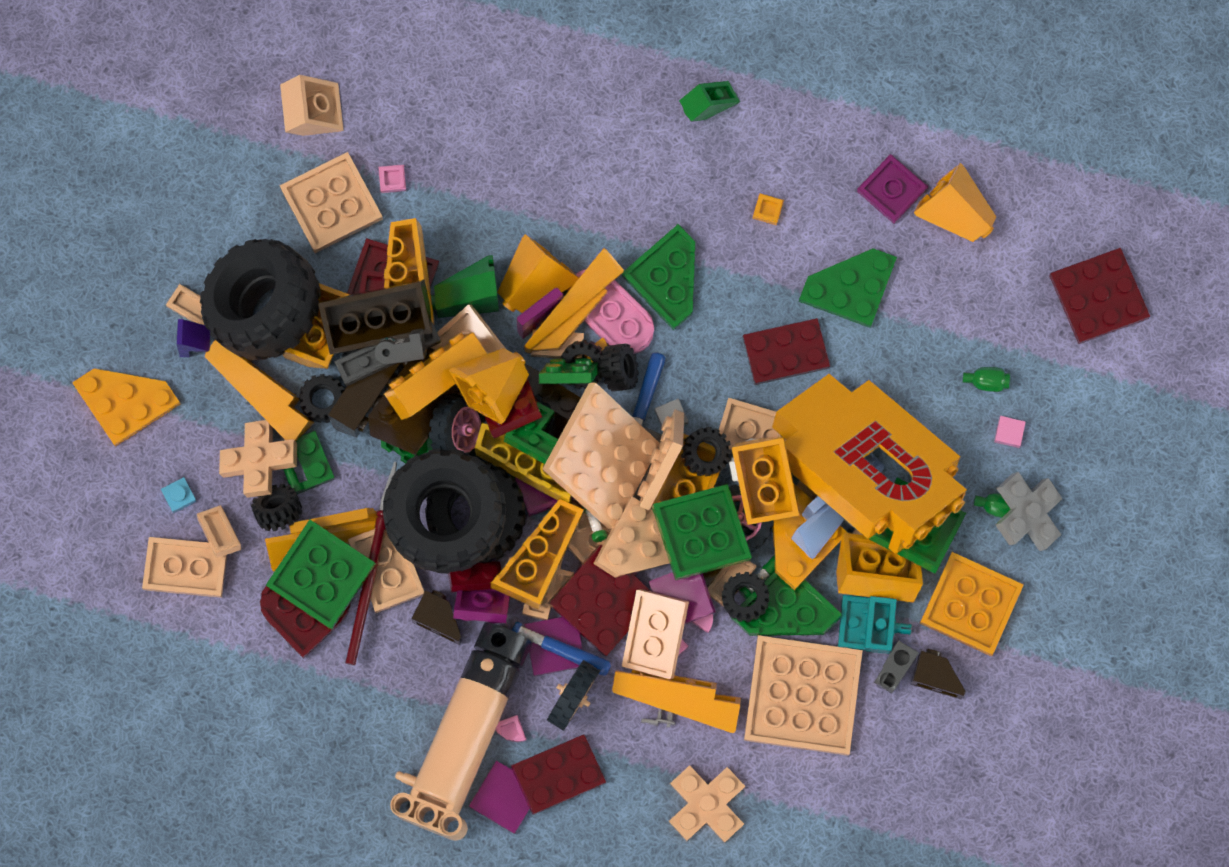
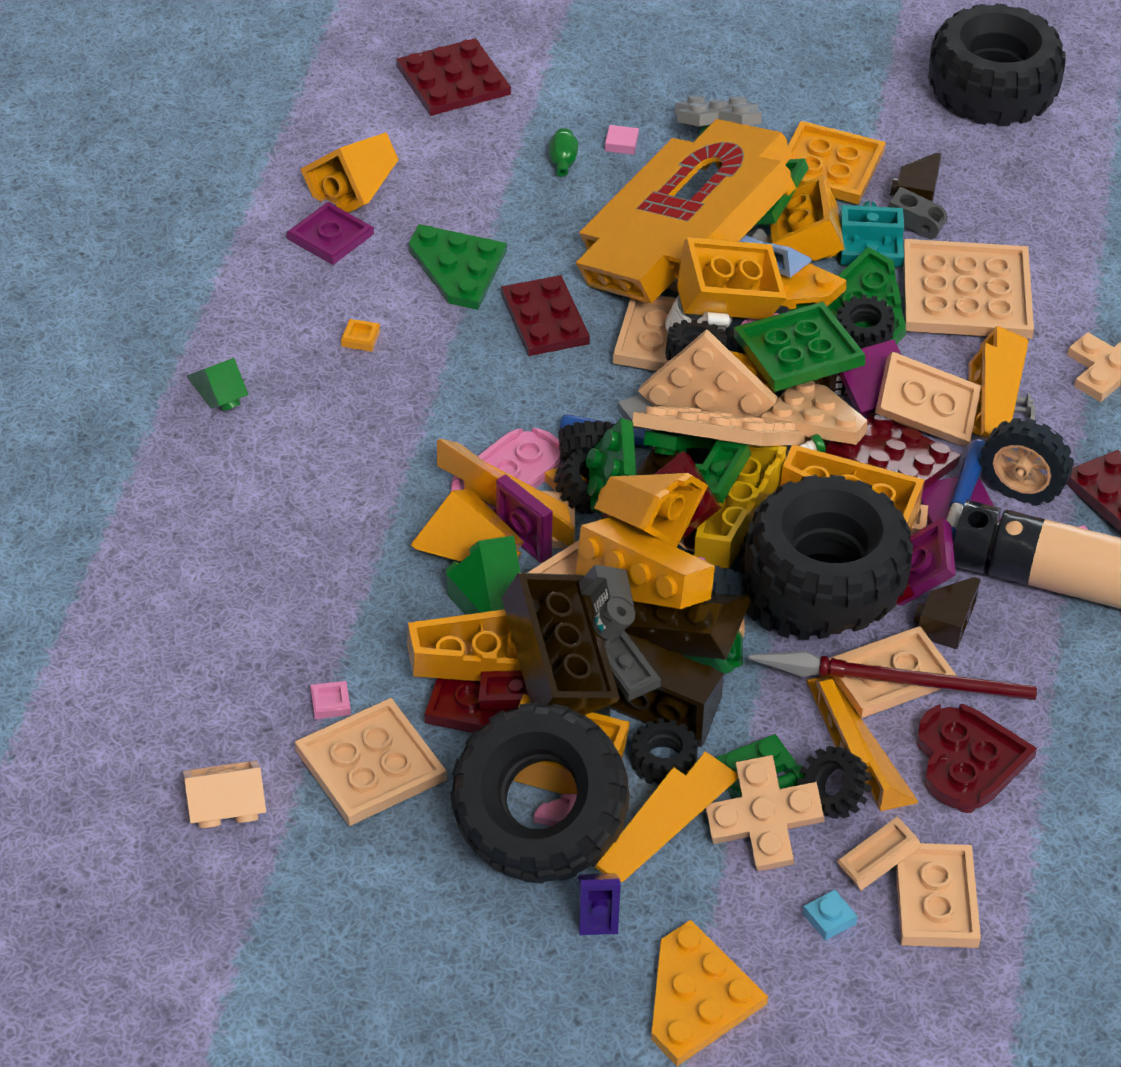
camera: 90 degrees left, 30 degrees down
(186, 304) = (541, 917): light nougat tile -> none
(320, 574) = (923, 720): green plate -> none
(666, 276) = (457, 414): green plate -> none
(1116, 738) = (996, 64): none -> black tyre

